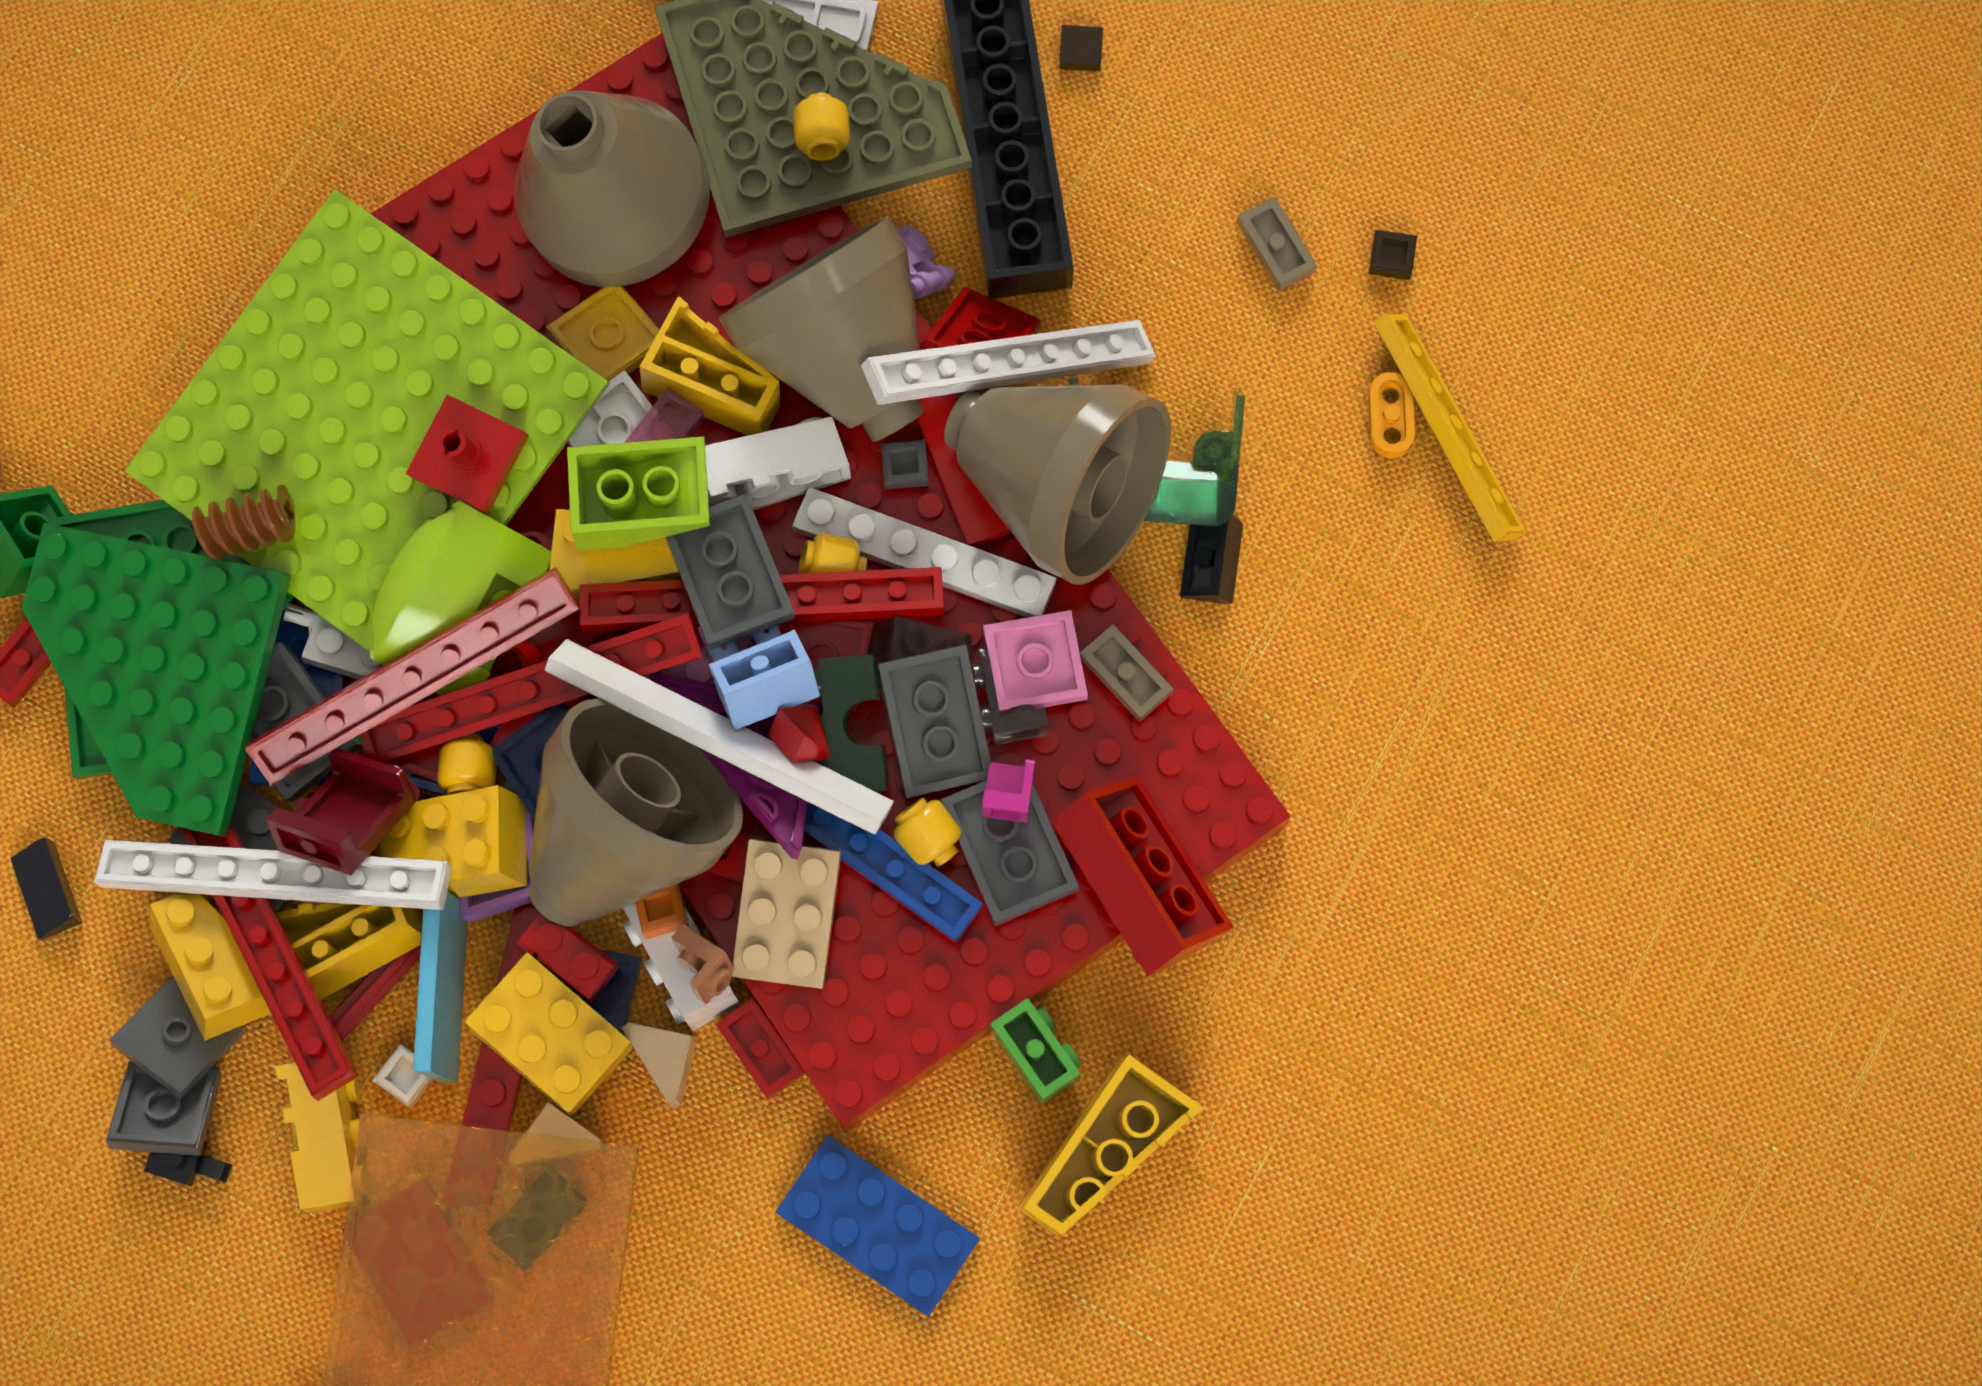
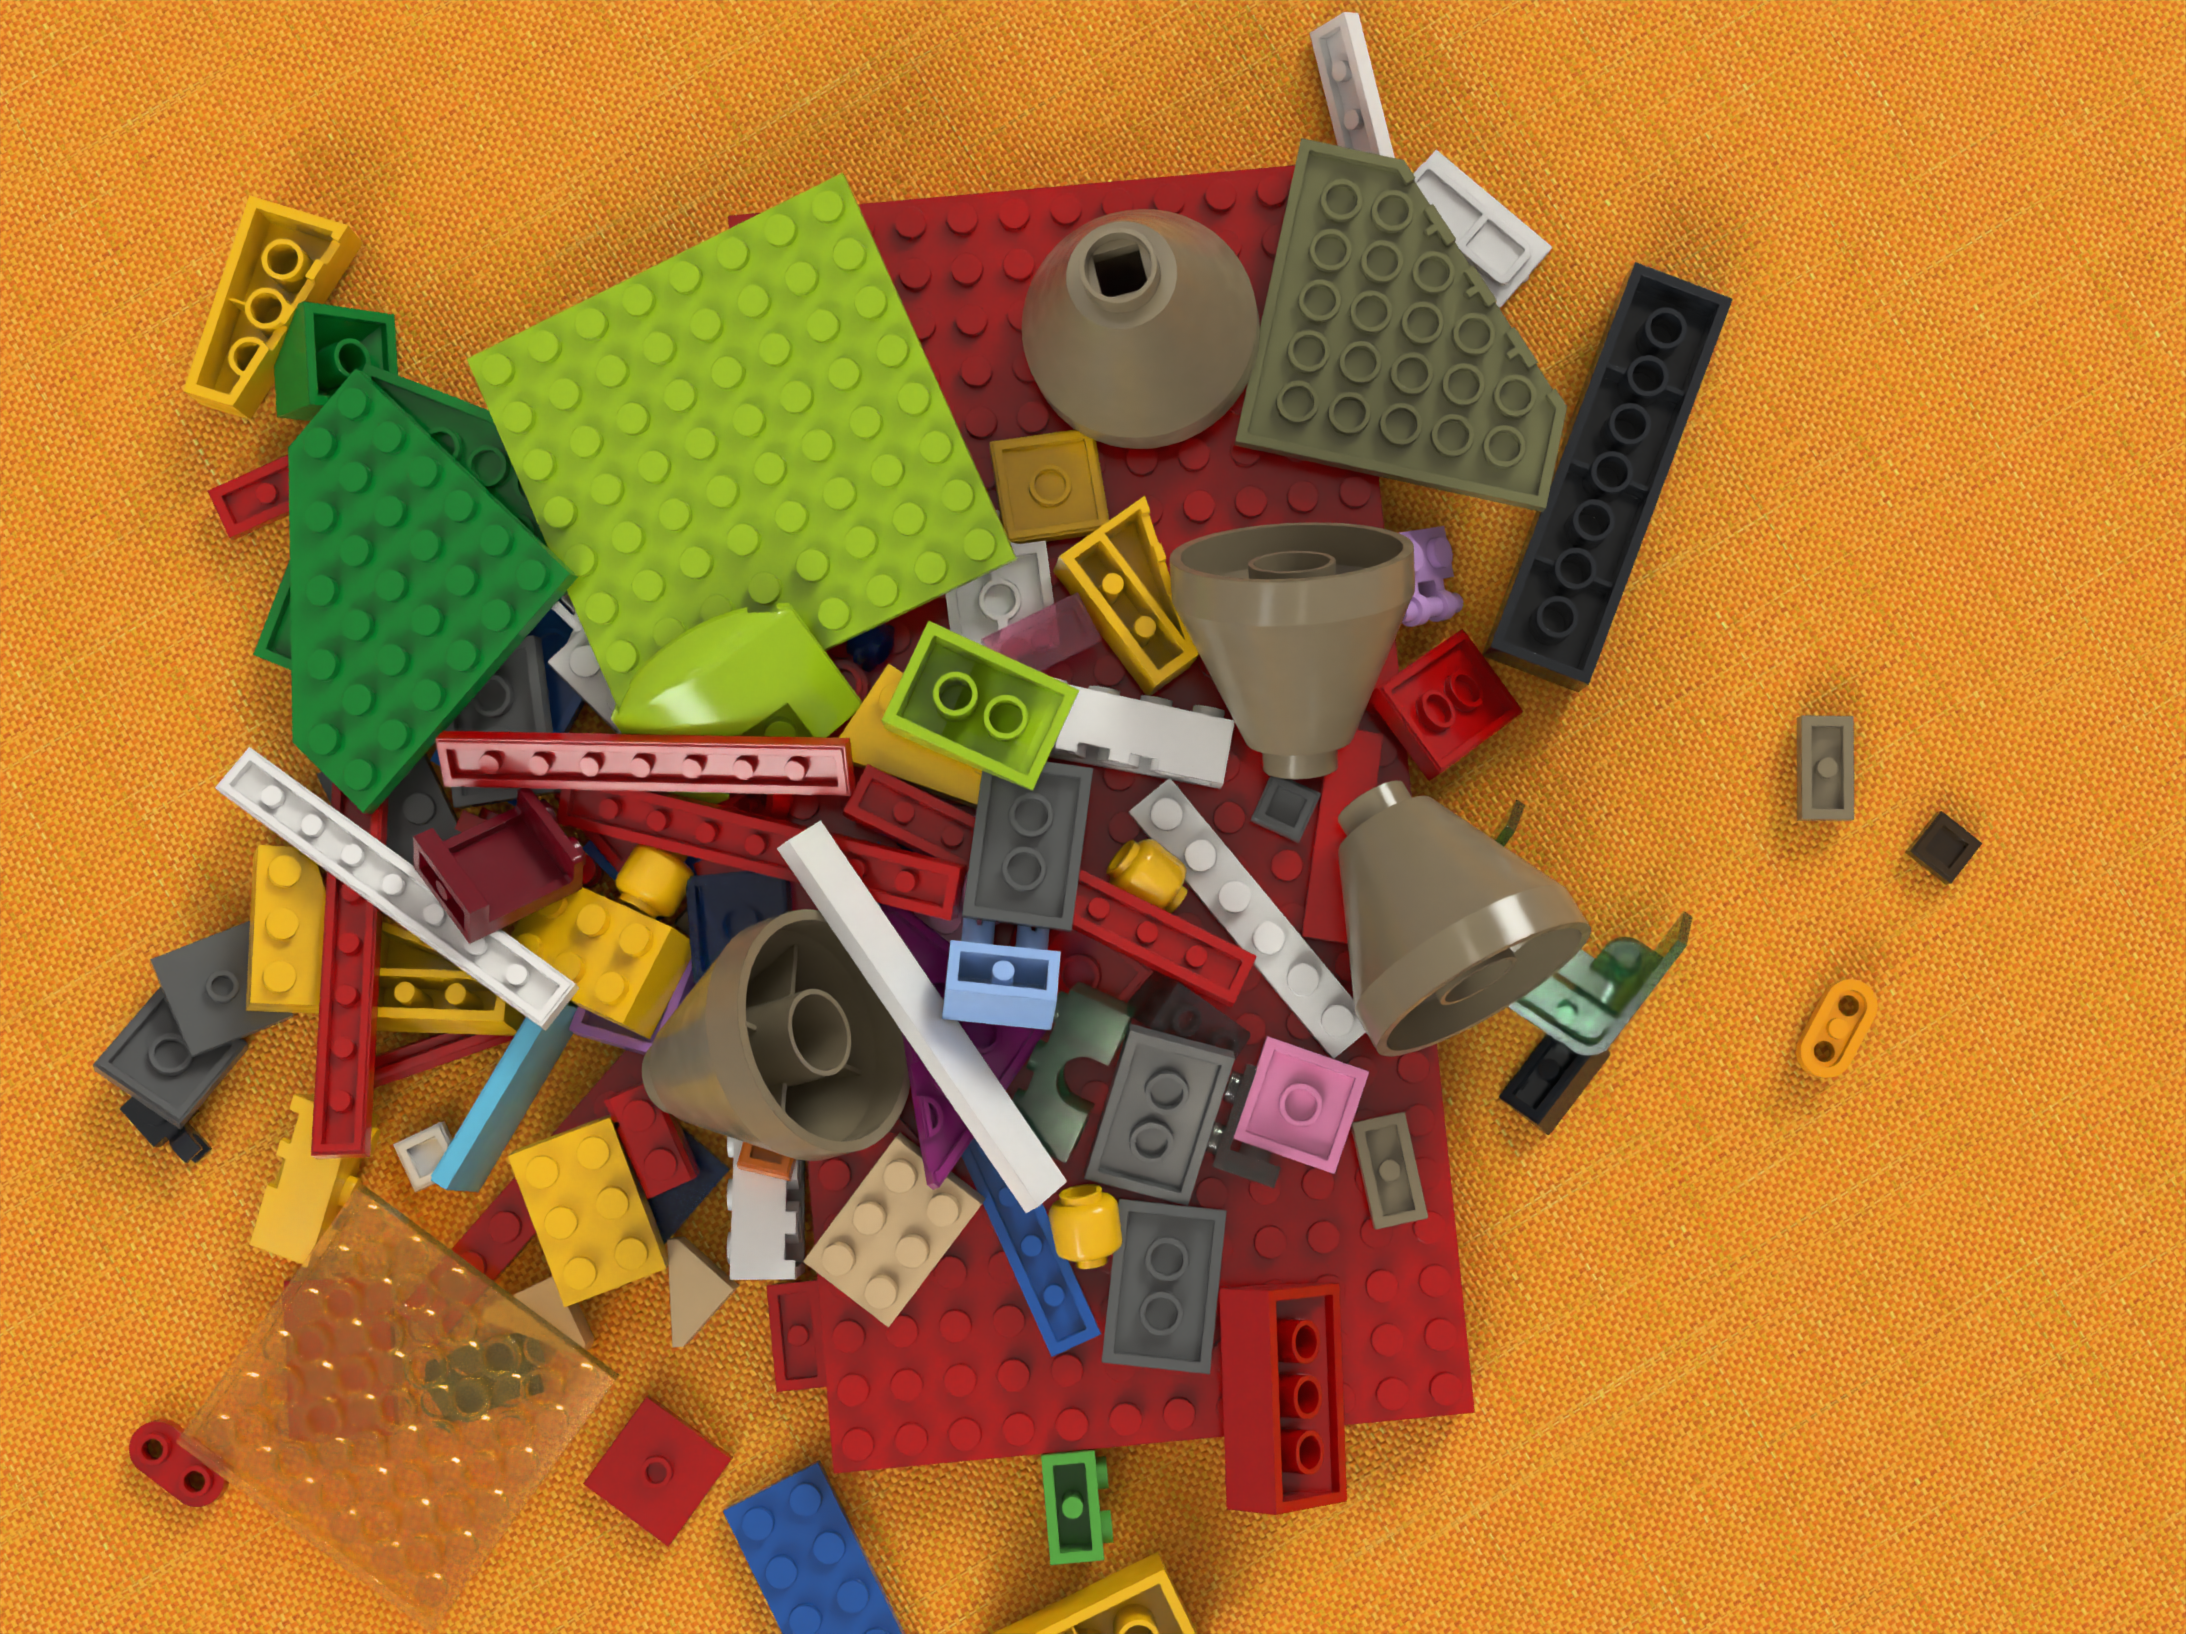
camera: 25 degrees right, 10 degrees up
(45, 888) = (170, 754): black slope -> none
(247, 525) = (555, 503): dark orange piece -> none
(467, 454) = (825, 556): red tile -> none
(537, 510) = (872, 646): none -> clear blue plate
(706, 960) = (779, 1228): nougat bracket -> none
(709, 1211) = (658, 1470): none -> red plate
(799, 734) = (1007, 1059): red slope -> none
(821, 126) = (1403, 385): yellow head -> none
(1006, 361) = (1453, 763): white tile -> none
(1008, 791) = (1193, 1234): dark pink panel -> none
(1081, 48) = (1742, 424): dark brown tile -> none
(1450, 427) = (1890, 1077): yellow tile -> none

